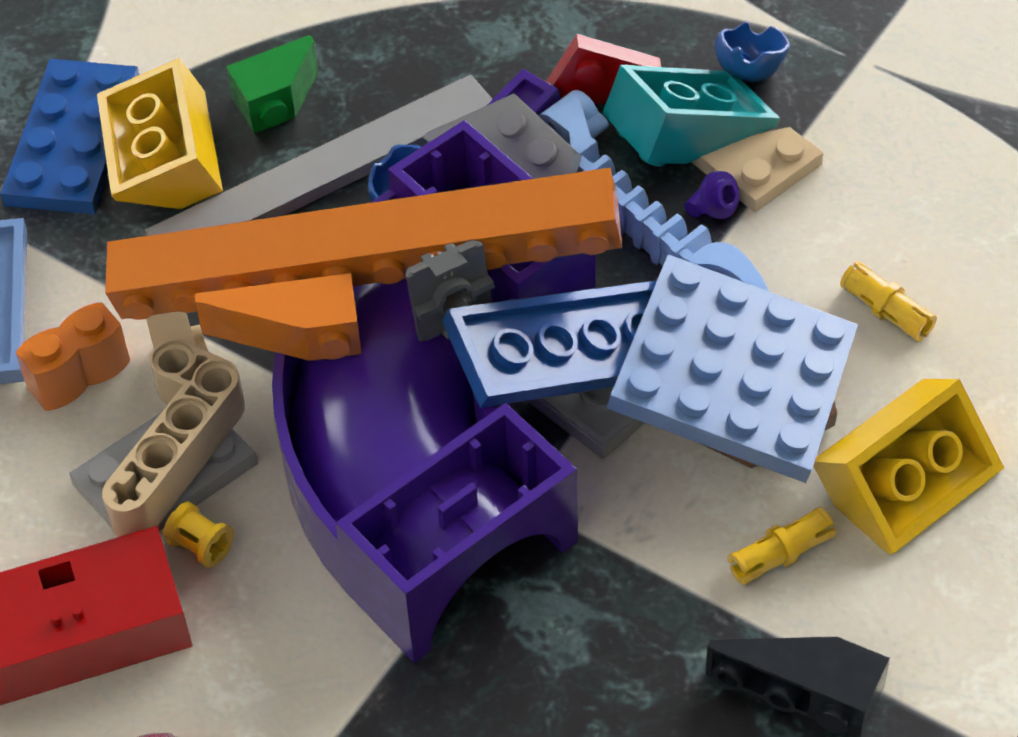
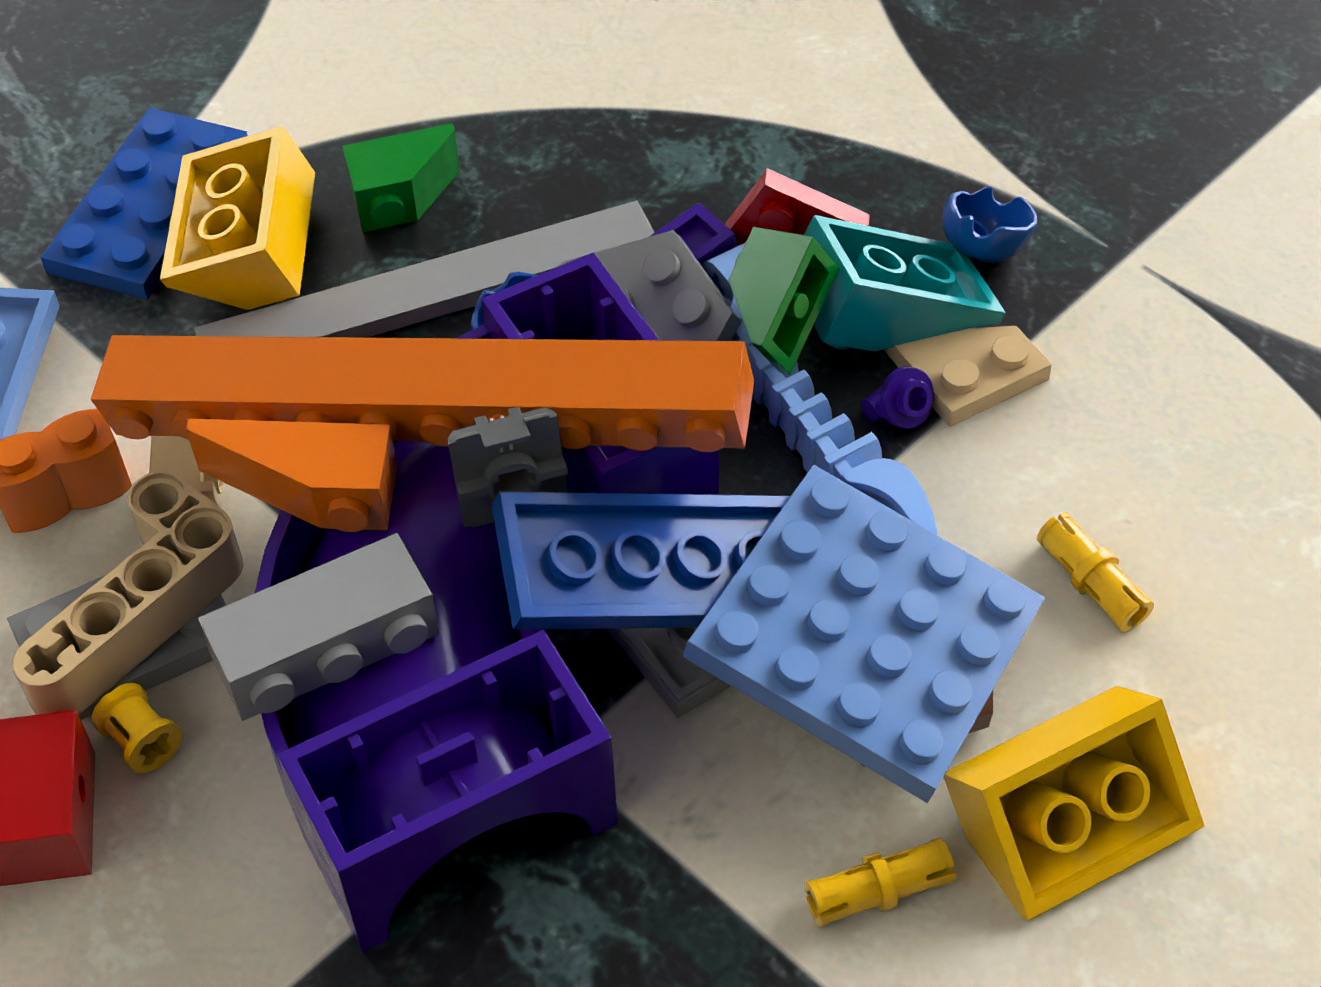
camera: 10 degrees right, 0 degrees up
(337, 429) = (320, 626): none -> light grey brick
(611, 126) = (780, 291): none -> green slope

